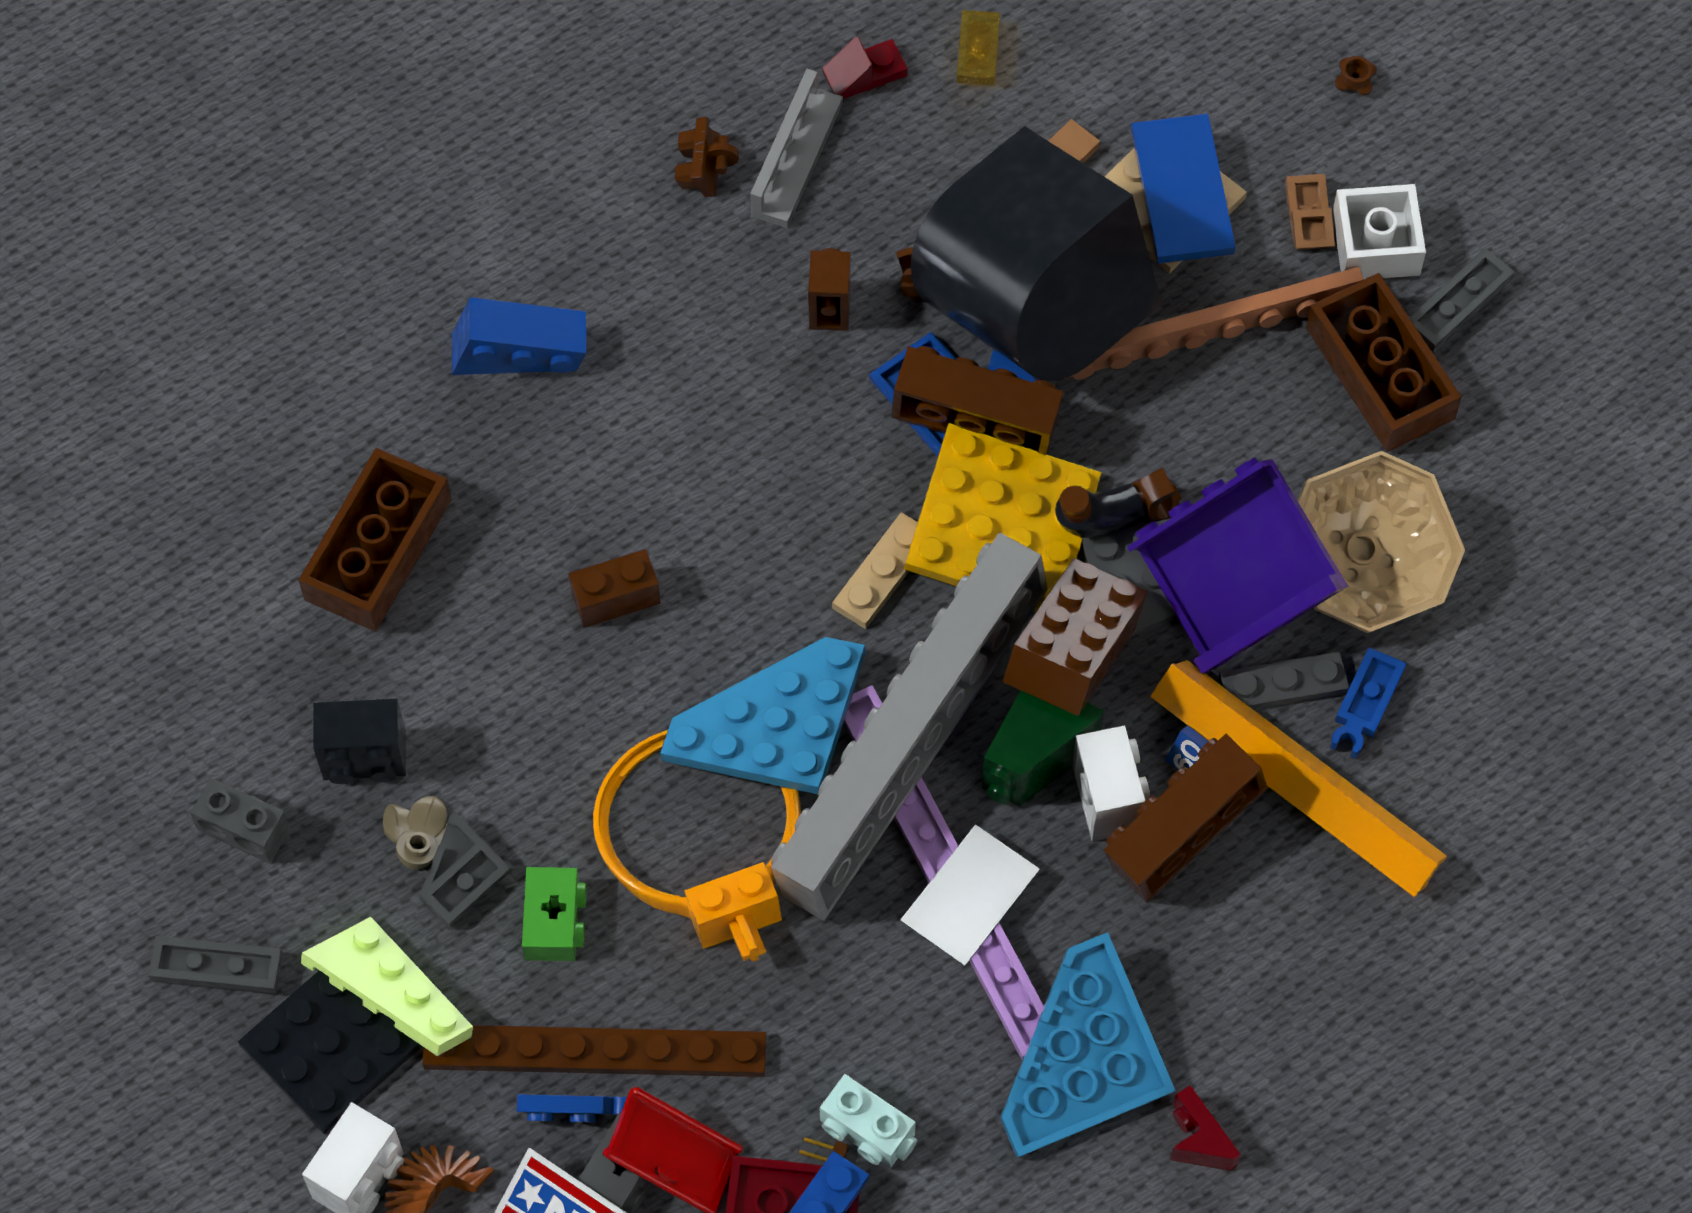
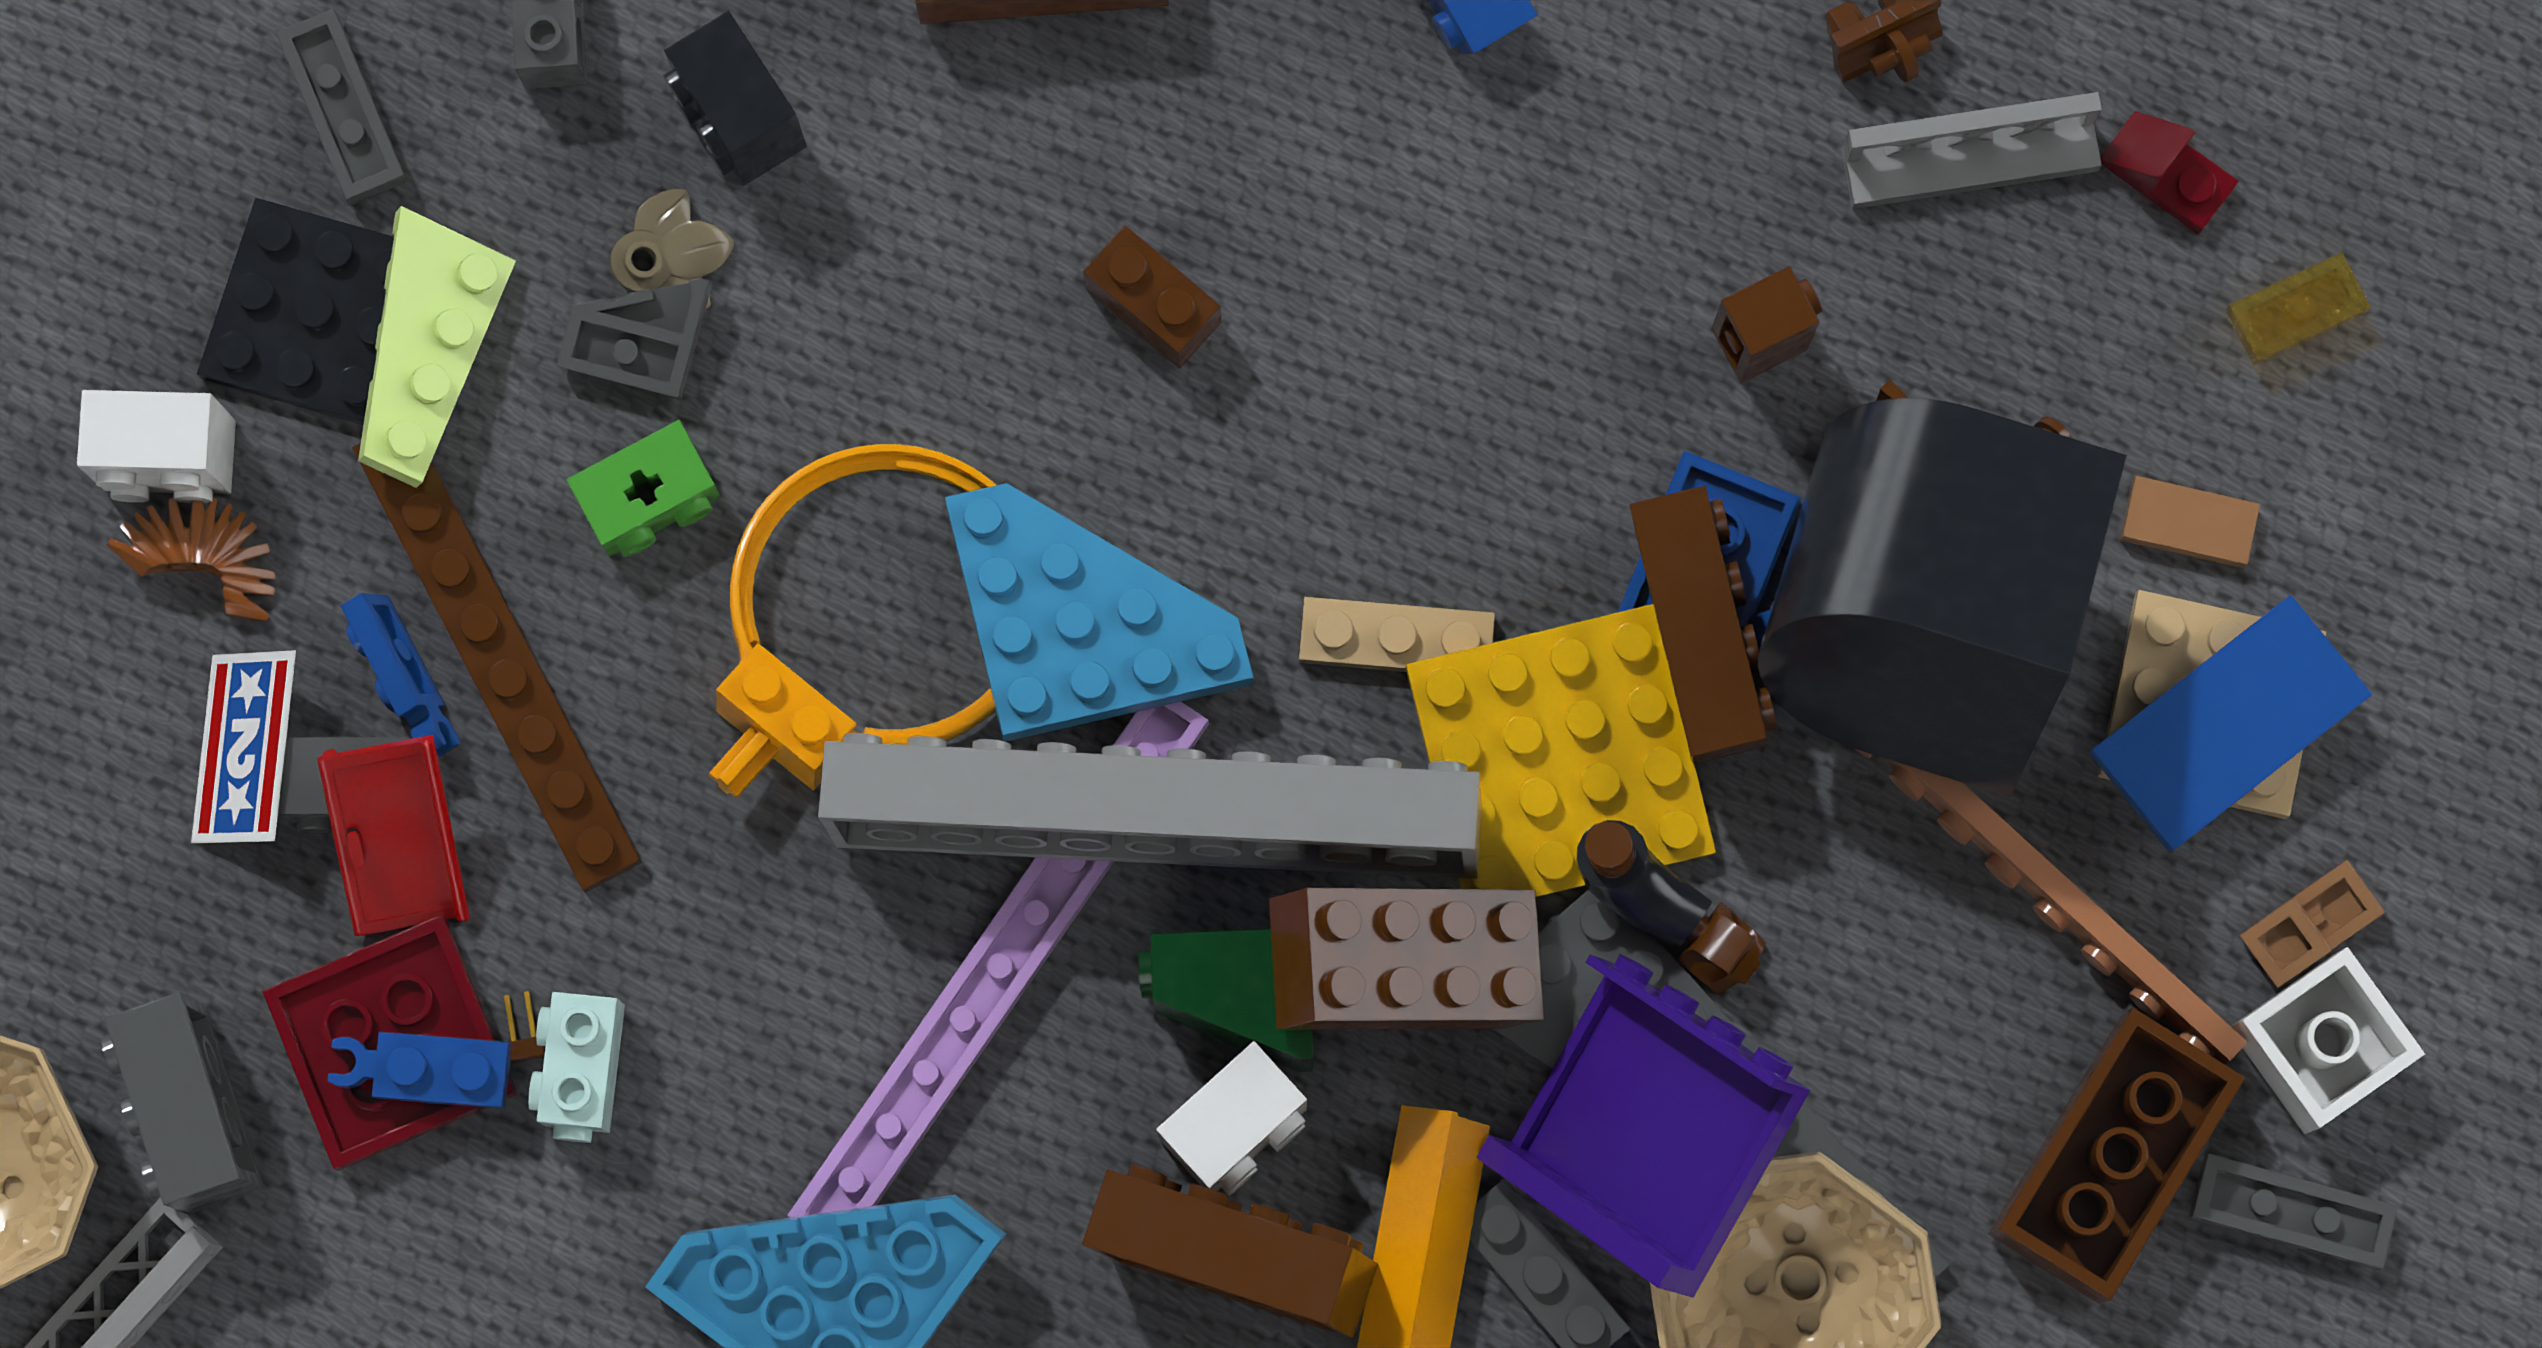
camera: 60 degrees right, 15 degrees up
(970, 894) = (976, 1020): white sticker -> none
(1185, 748) = (1355, 1205): blue tile -> none

